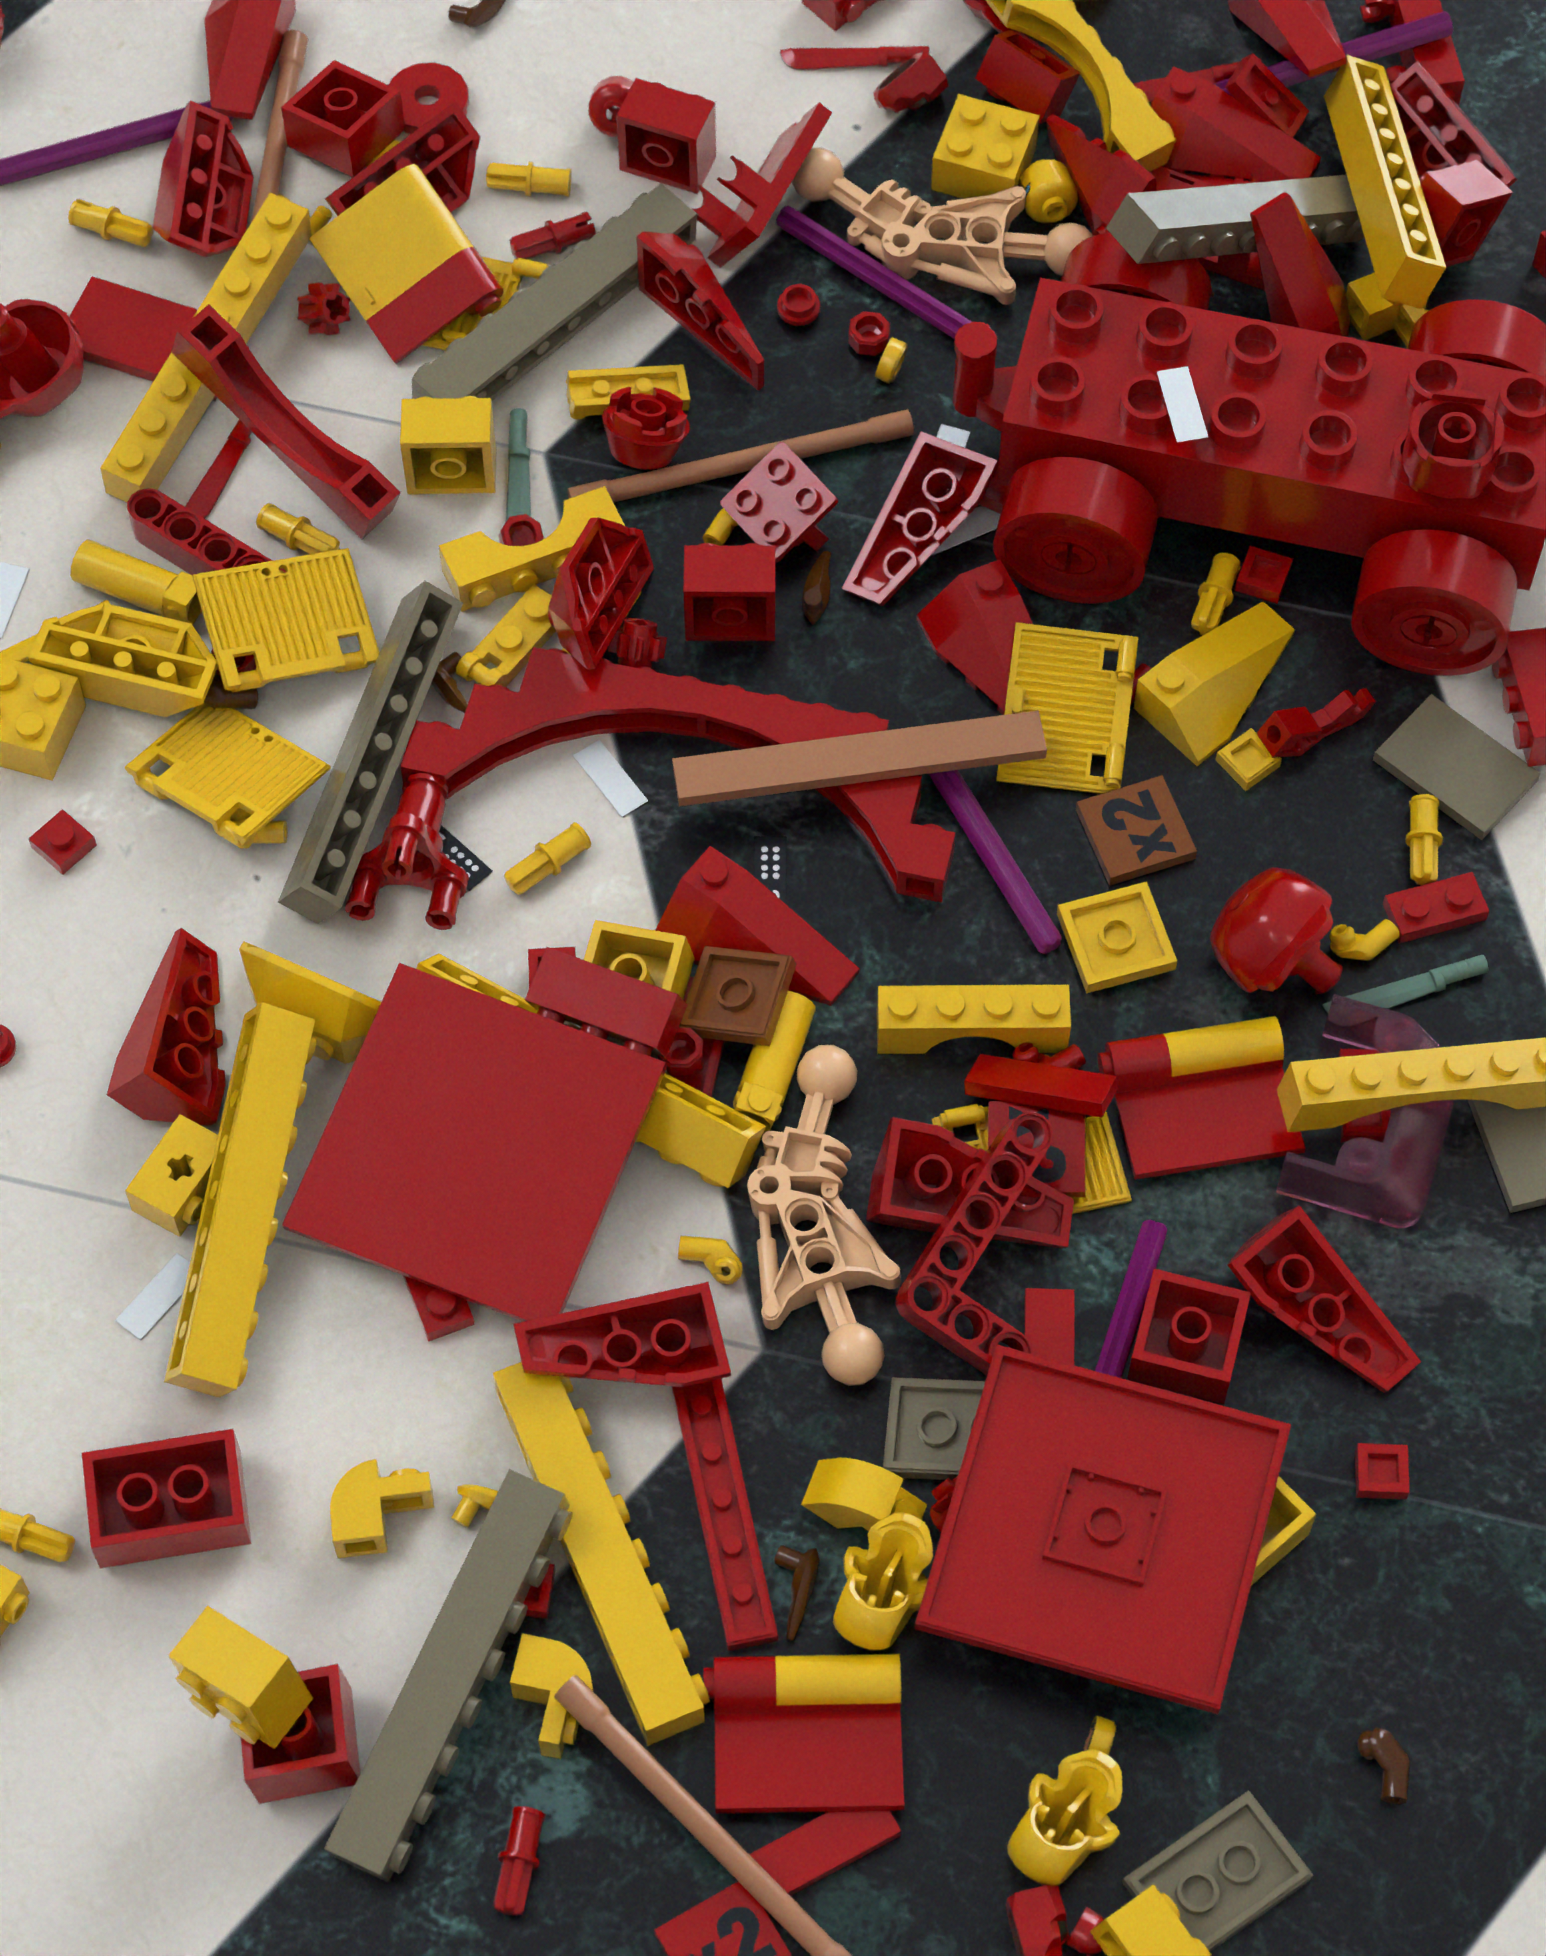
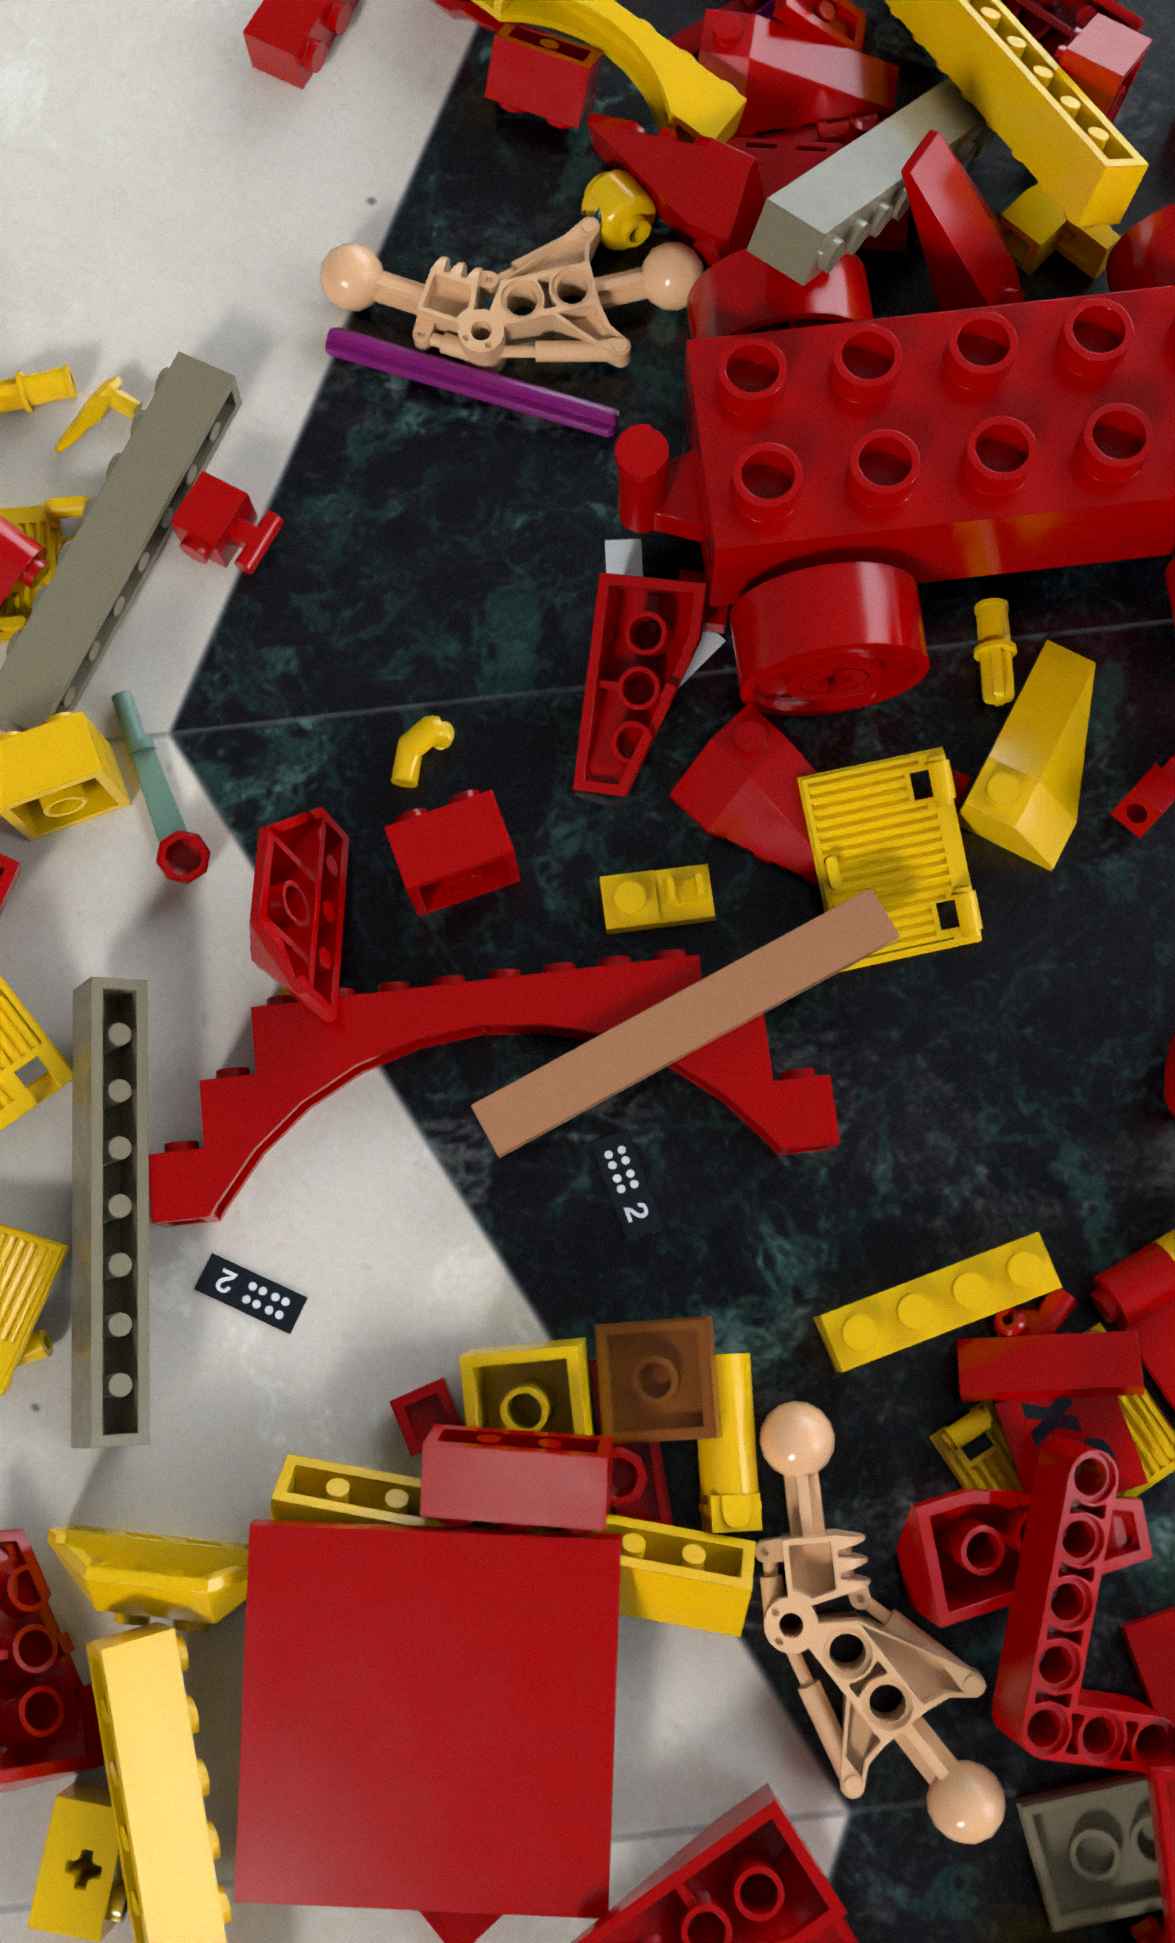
camera: 15 degrees left, 15 degrees up
(412, 856) = (208, 1327): red wheel -> none
(446, 685) = (167, 1080): reddish brown bar -> none
(488, 570) = (156, 917): yellow arch -> none
(510, 641) = (219, 997): yellow plate -> none
(547, 859) = (365, 1267): yellow axle -> none
(552, 236) = (77, 457): red axle -> none
(591, 202) = (98, 405): none -> yellow bar
(591, 389) = (236, 624): yellow hinge -> none
(605, 96) = (90, 268): red head -> none
(610, 778) = (399, 1126): white sticker -> none
(638, 643) = (370, 952): red gear -> none
(645, 317) = (221, 519): none -> red brick
(645, 428) = (275, 670): red cone -> none
(666, 135) = (161, 285): red brick -> none
(689, 292) = (254, 462): red wedge -> none
(715, 1255) = (755, 1717): yellow arm -> none
(732, 909) = (619, 1273): red wedge -> none
(759, 190) = (299, 321): red piece -> none
(781, 502) = (468, 716): bracket -> none
(798, 305) = (391, 448): red plate -> none
(817, 588) = (544, 800): reddish brown bar -> none
(848, 57) = (332, 116): red piece -> none
(869, 333) = (484, 456): red tile -> none
(874, 430) = (260, 762): nougat piece -> none
(875, 684) = (657, 899): none -> yellow plate
(891, 360) = (523, 483): yellow tile -> none
(911, 84) = (415, 127): red rock -> none
(983, 148) = (528, 183): yellow brick -> none
(998, 860) = (878, 1075): magenta axle -> none
(1116, 937) = (1053, 1130): yellow plate -> none
(1136, 830) = (1018, 981): dark orange tile -> none
(1182, 404) = (930, 458): white sticker -> none
(1247, 760) = (1106, 845): yellow tile -> none
(1263, 574) = (1039, 608): red plate -> none

